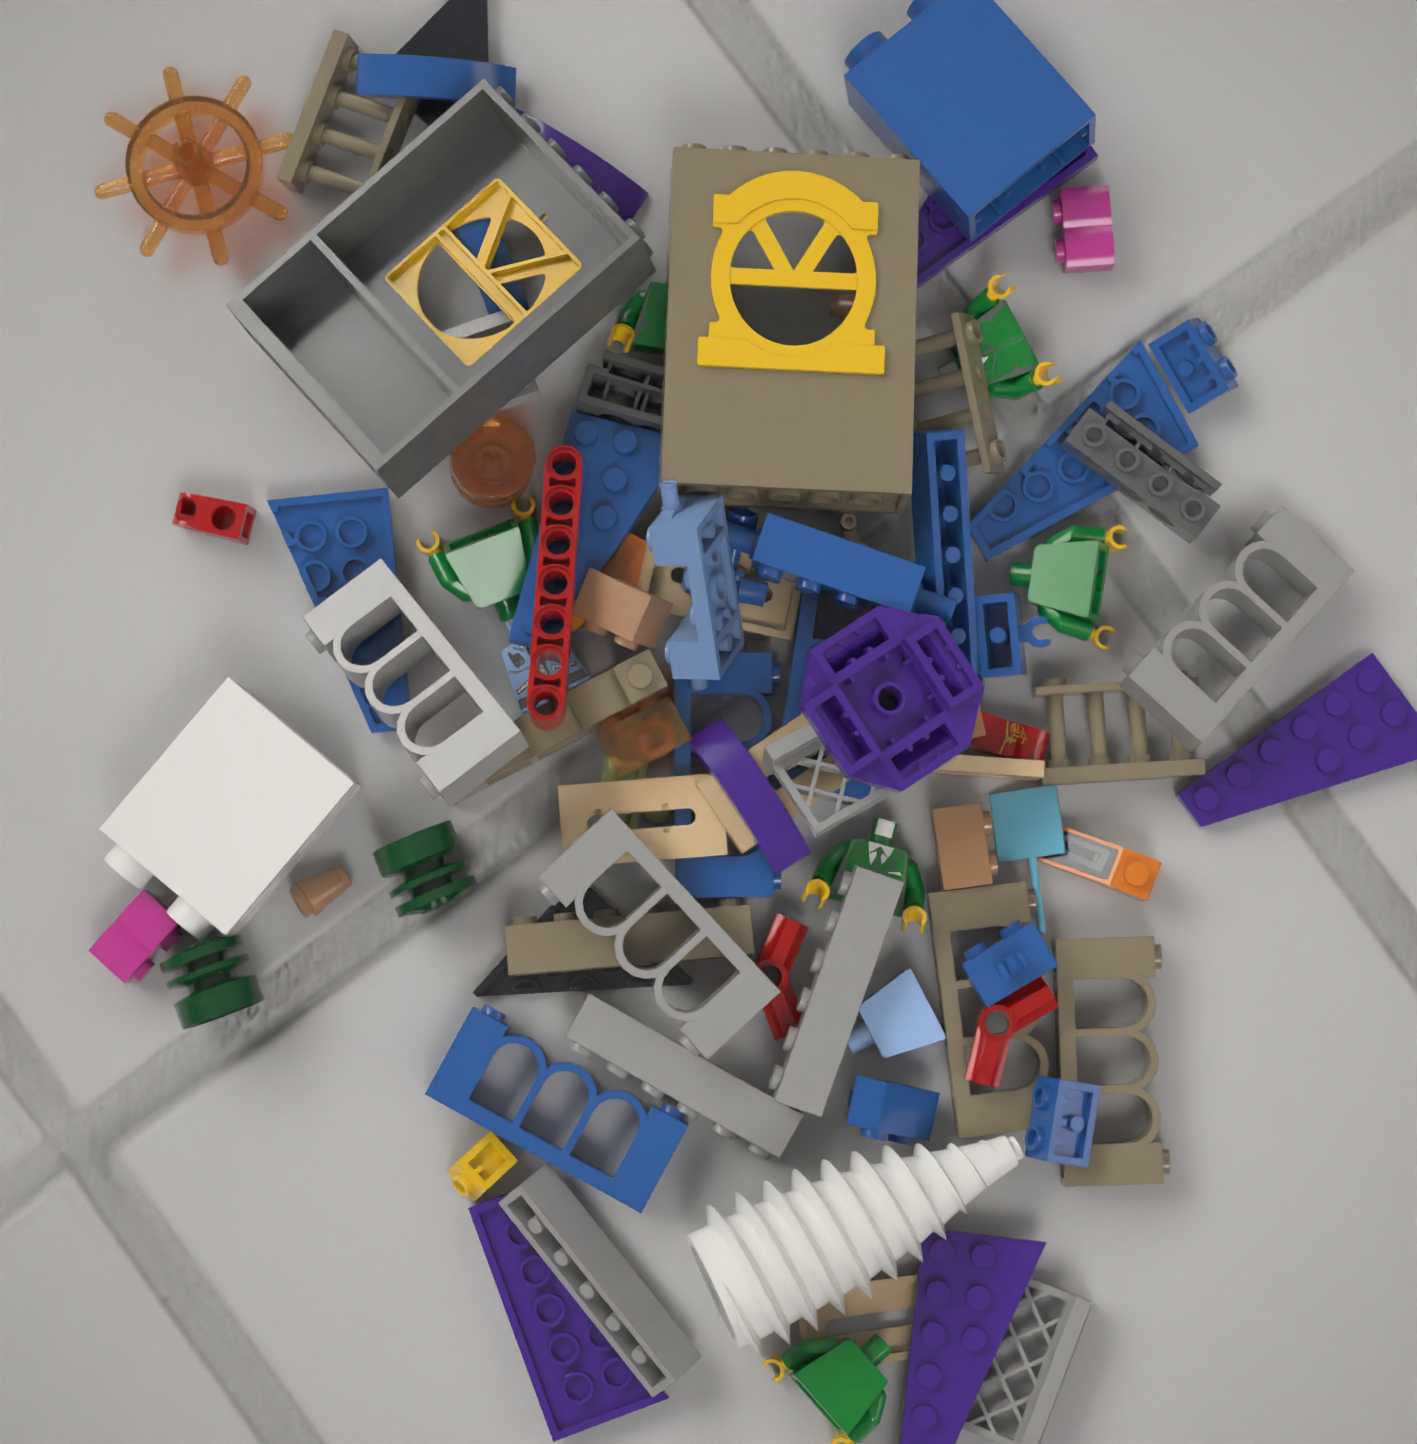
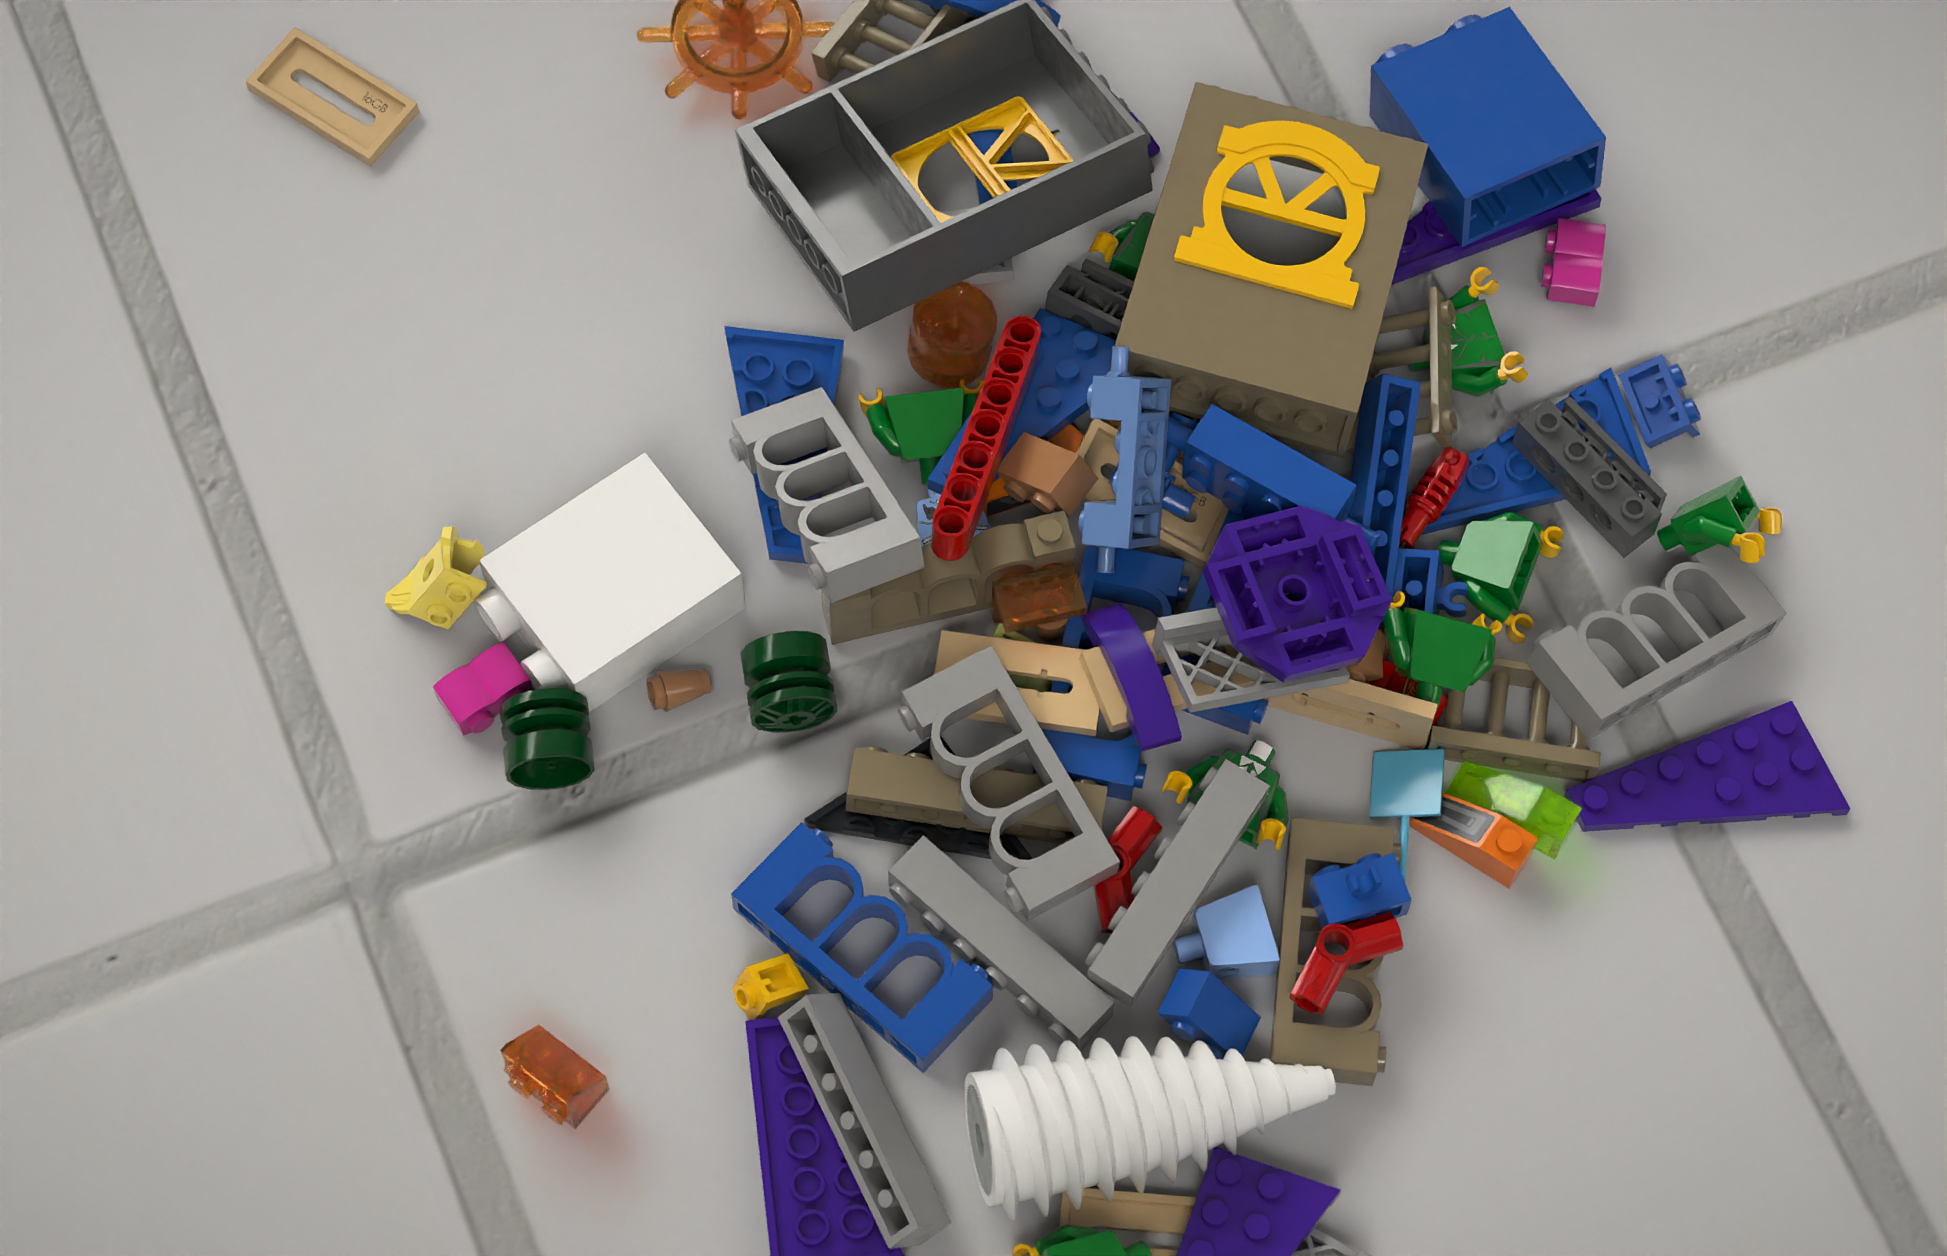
camera: 15 degrees right, 20 degrees down
(65, 860) = (449, 587): none -> light yellow piece
(215, 517) = (670, 331): red leg -> none
(306, 1306) = (553, 1075): none -> clear orange slope
(962, 846) = (1336, 780): medium nougat brick -> none
(995, 526) = (1432, 494): none -> red hinge
(1034, 698) = (1438, 649): none -> green torso
(1062, 1121) = (1384, 1061): blue bracket -> none
(1128, 958) = (1420, 1127): dark tan fence -> none
(1130, 823) = (1520, 801): none -> clear neon green slope
(1275, 489) = (1720, 520): none -> green torso

